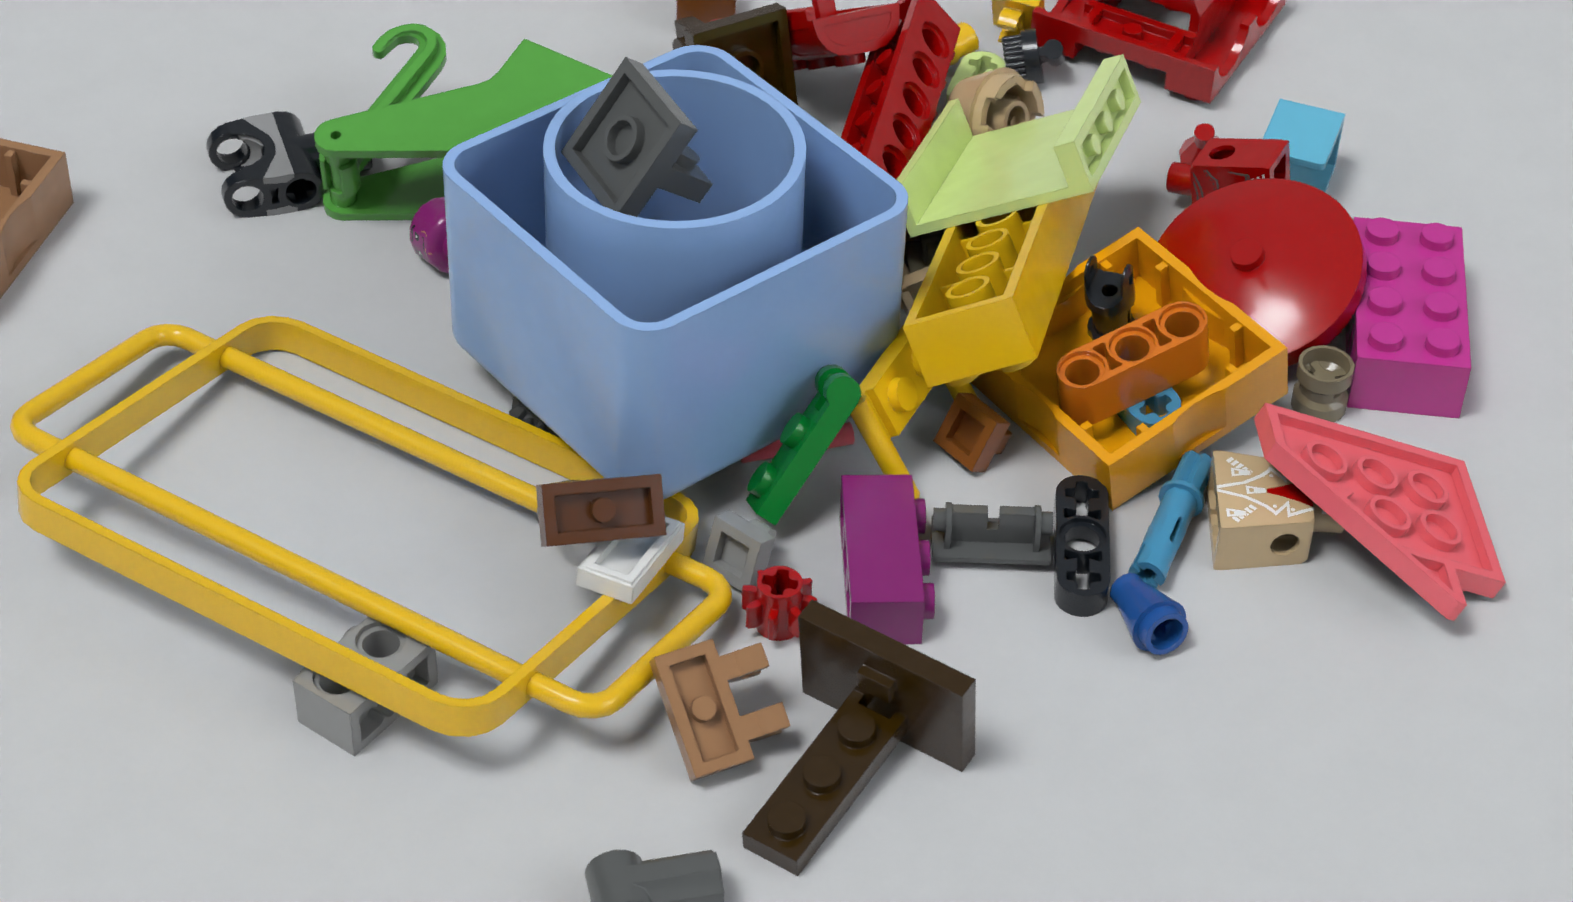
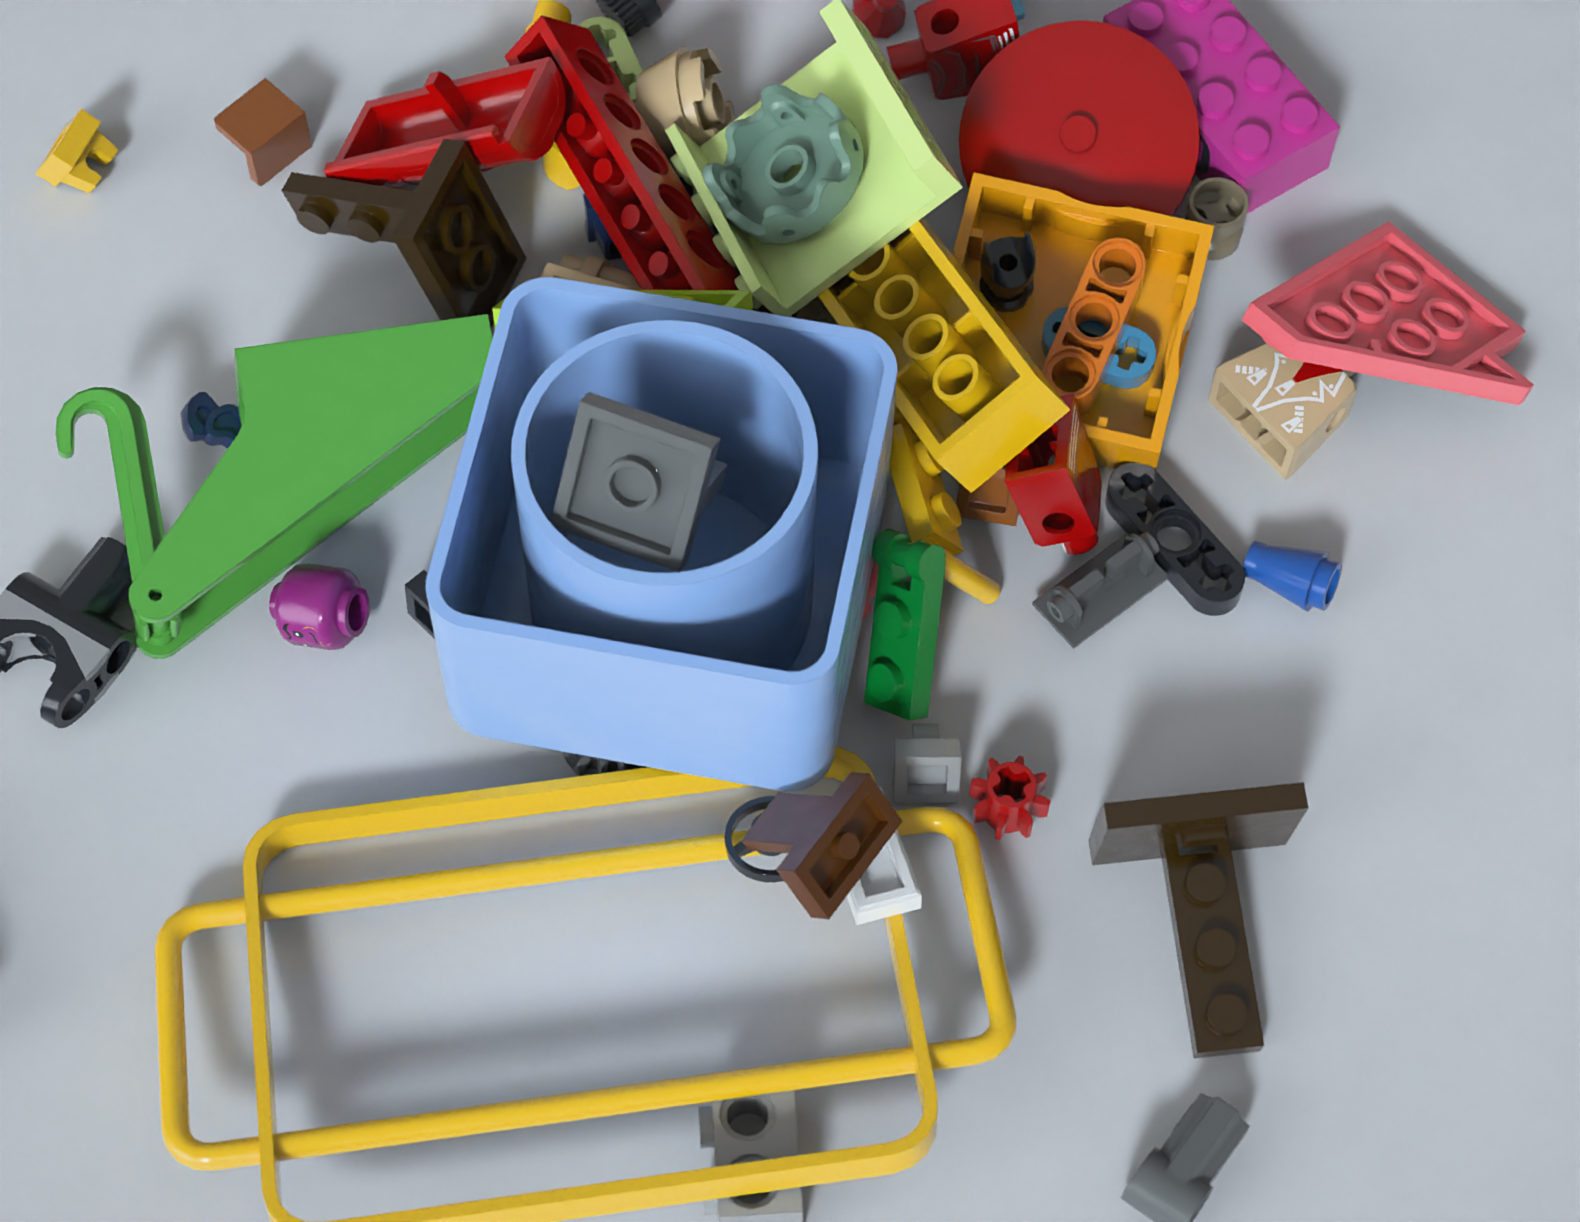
camera: 40 degrees left, 20 degrees up
(703, 709) = (1065, 962): medium nougat plate -> none
(884, 555) = (1046, 683): magenta brick -> none
(996, 140) = (763, 148): none -> sand green plate
(1011, 431) = (1063, 498): none -> red torso
(1179, 502) = (1223, 456): dark azure axle -> none

